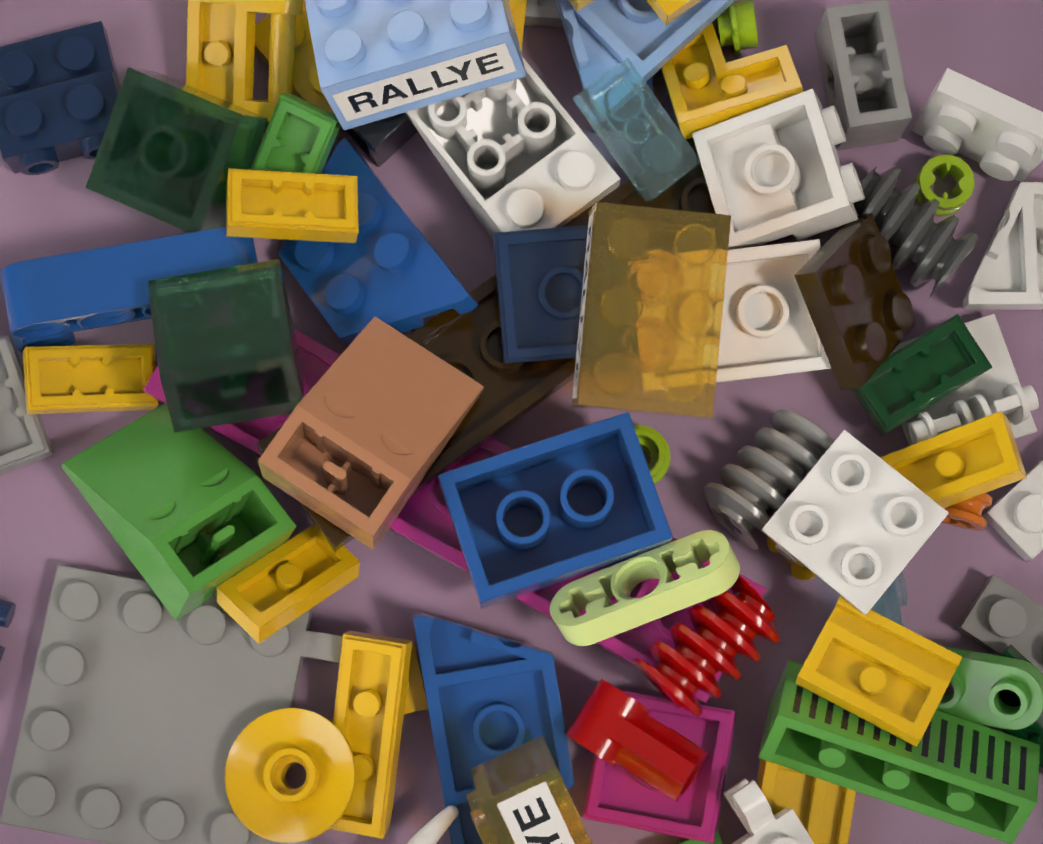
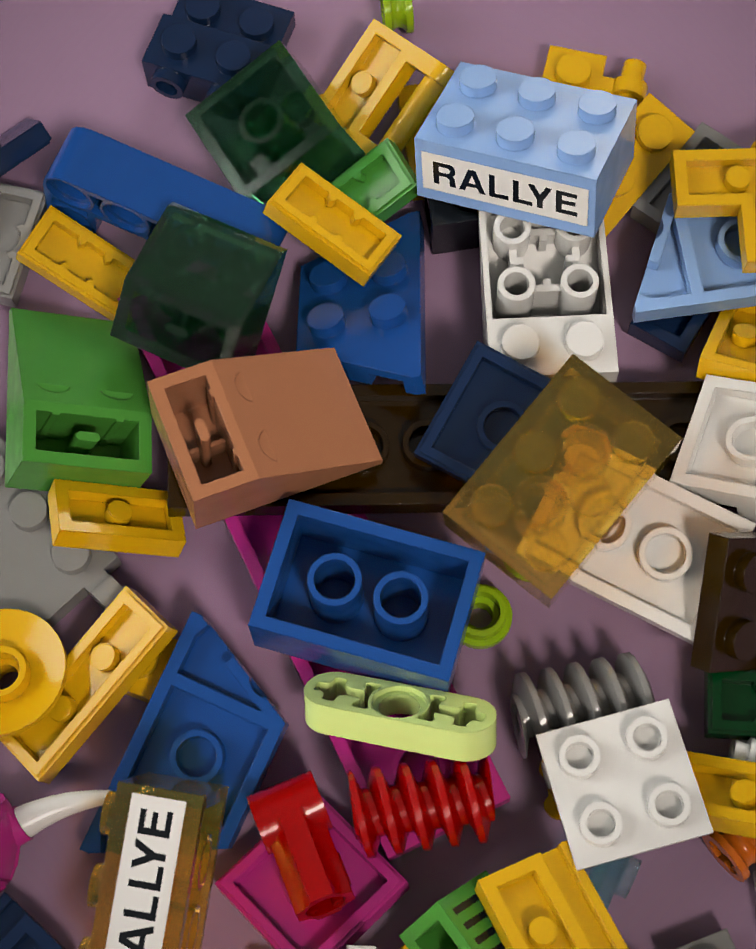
camera: 40 degrees right, 10 degrees down
(636, 129) = (660, 340): clear light blue plate -> none

